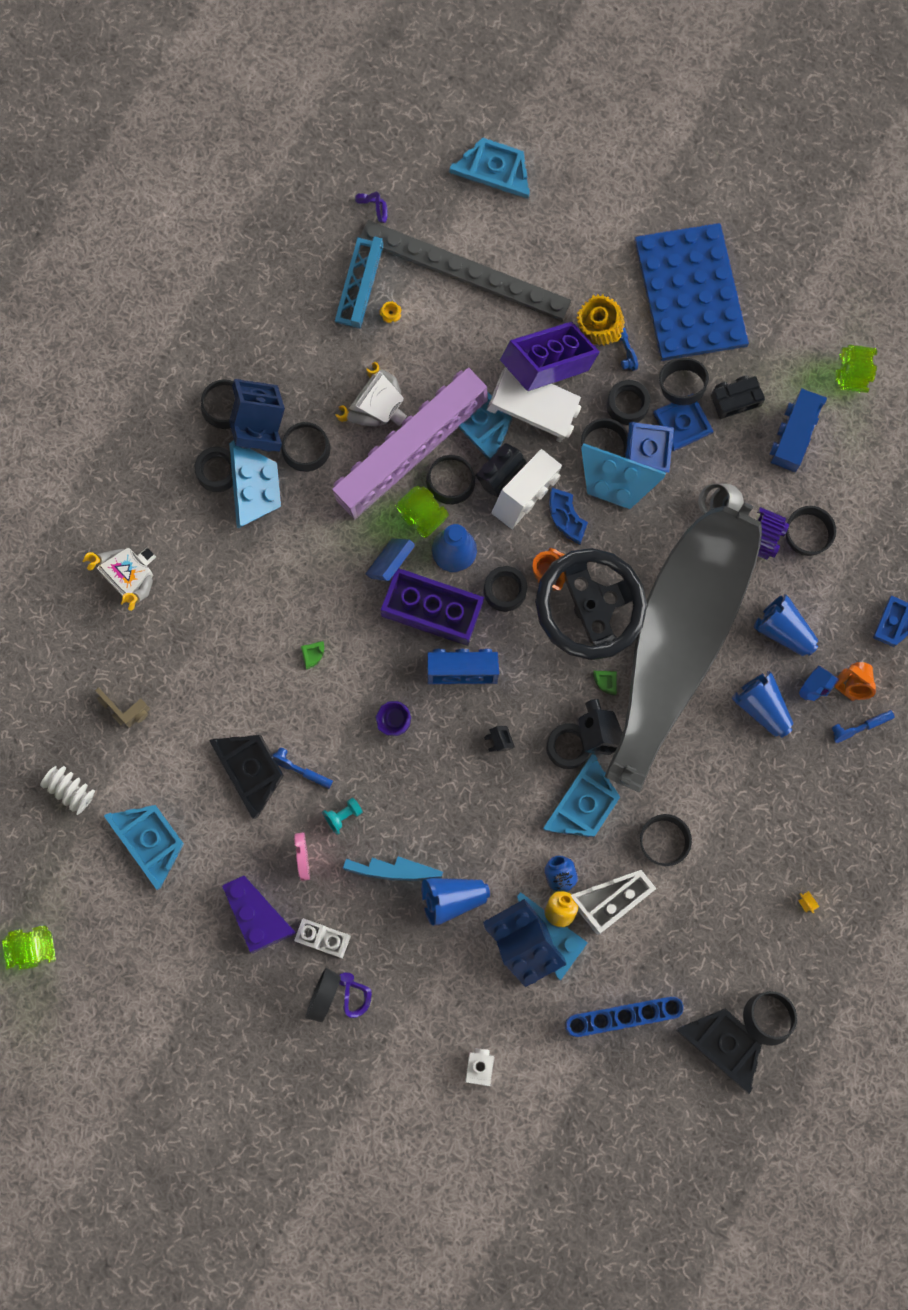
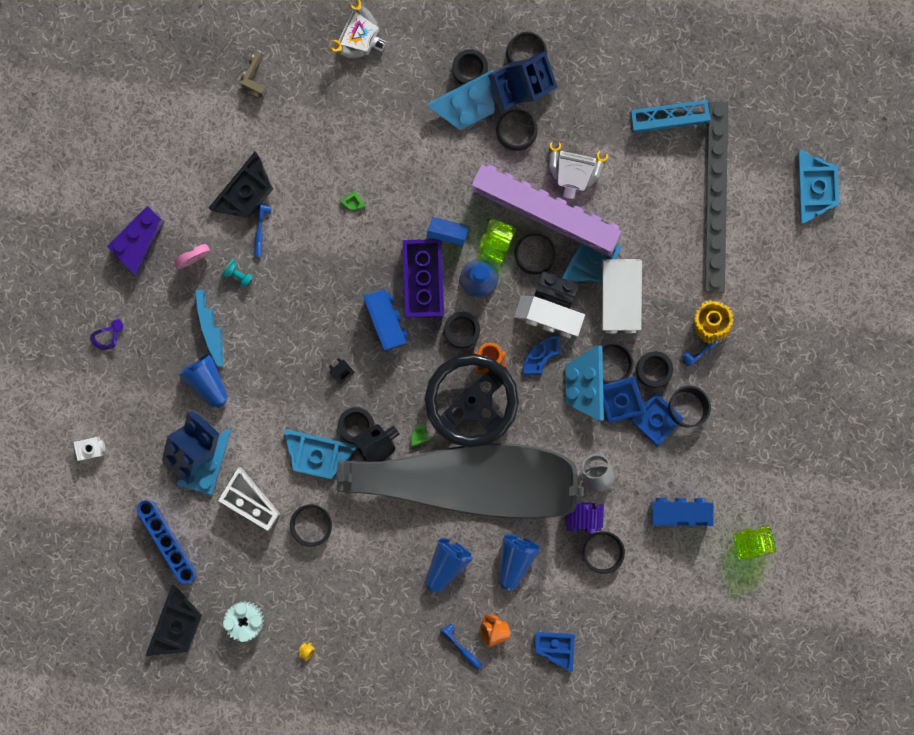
camera: 70 degrees right, 10 degrees up
(28, 948) = (47, 84): clear neon green brick -> none
(67, 790) = (176, 62): white piece -> none
(148, 840) = (163, 137): dark azure wing -> none
(322, 938) = (140, 296): white slope -> none
(323, 996) = (95, 313): black tyre -> none
(364, 198) = (748, 102): dark purple piece -> none
(390, 306) = (656, 146): yellow plate -> none
(393, 718) = (324, 283): dark purple hair -> none
(549, 356) = (662, 291): dark purple brick -> none
(561, 873) = (254, 455): blue head -> none
(561, 909) = (226, 465): yellow head -> none
(691, 291) = (772, 385): blue plate -> none
(737, 397) = (694, 455): black brick -> none
(752, 1027) = (204, 633): black tyre -> none
(763, 961) = (236, 629): none -> light aqua brick
(818, 684) = (480, 601): blue rock -> none

